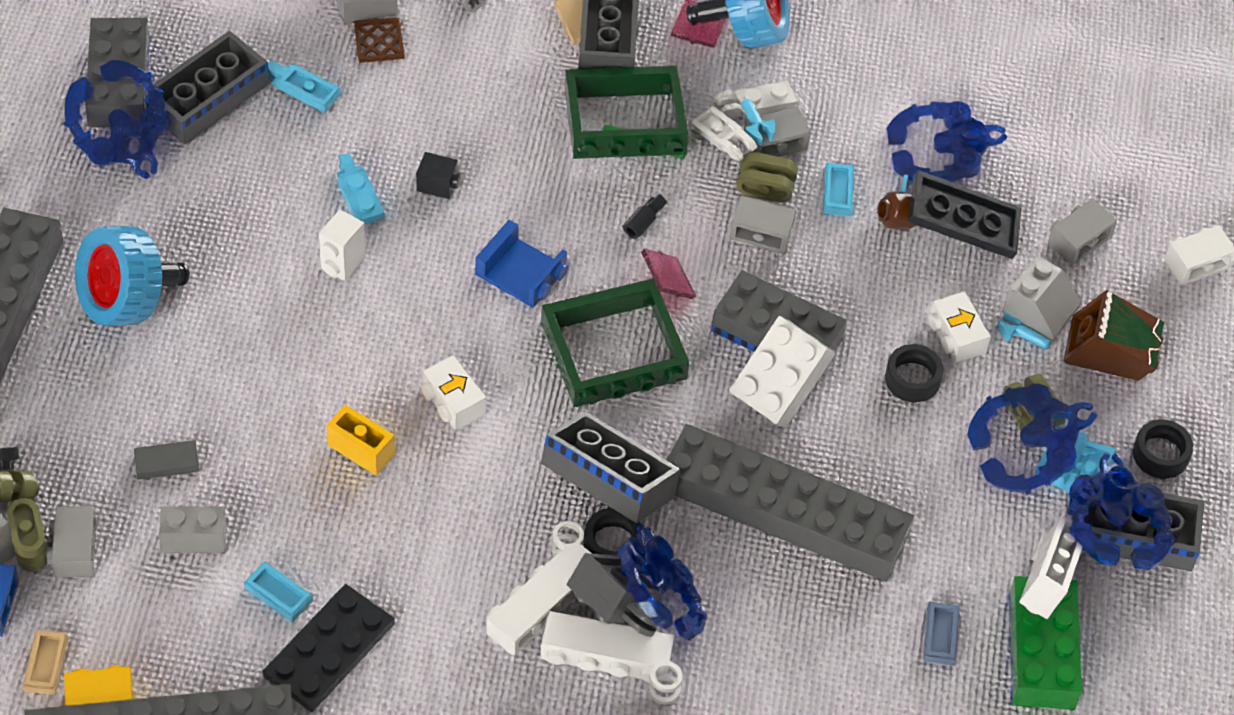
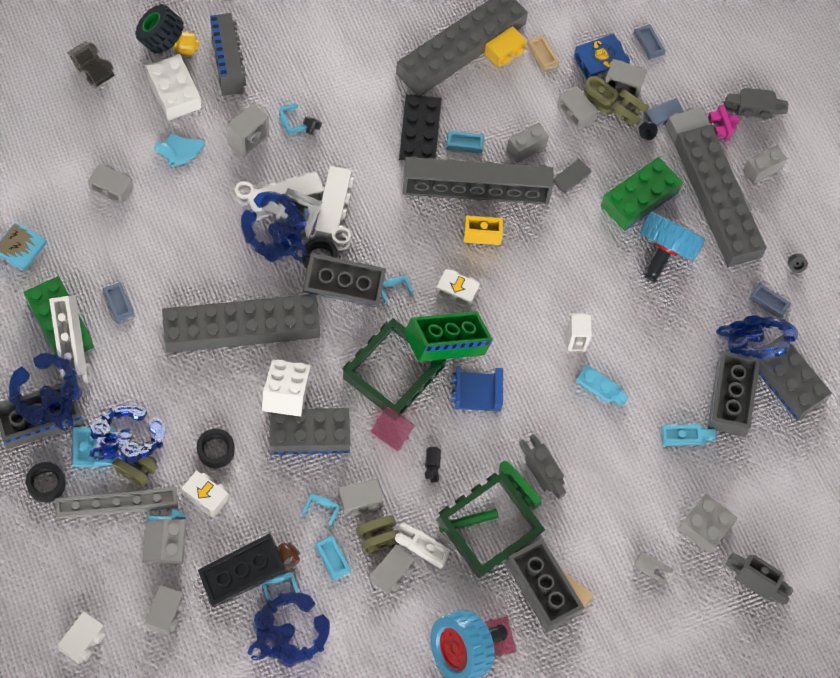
camera: 145 degrees right, 10 degrees up
(51, 172) = (770, 301): none -> sand blue tile
(95, 375) = (641, 193): none -> green brick
(316, 505) = (477, 180): none -> dark grey brick
(377, 23) = (683, 493): reddish brown window -> none
(437, 175) = (565, 418): black brick -> none
(510, 136) = (543, 467): none -> dark grey hinge
(523, 317) = (448, 336): none -> green brick
(525, 455) = (393, 281): none -> medium azure piece
(554, 141) = (529, 495): none -> green hinge
(757, 123) = (405, 556): medium azure bar -> none
(765, 98) = (420, 595): white hinge -> none
(810, 252) = (324, 501): none -> medium azure piece
(1078, 382) = (116, 503): none -> light grey tile
(1114, 338) = (107, 537): reddish brown slope -> none

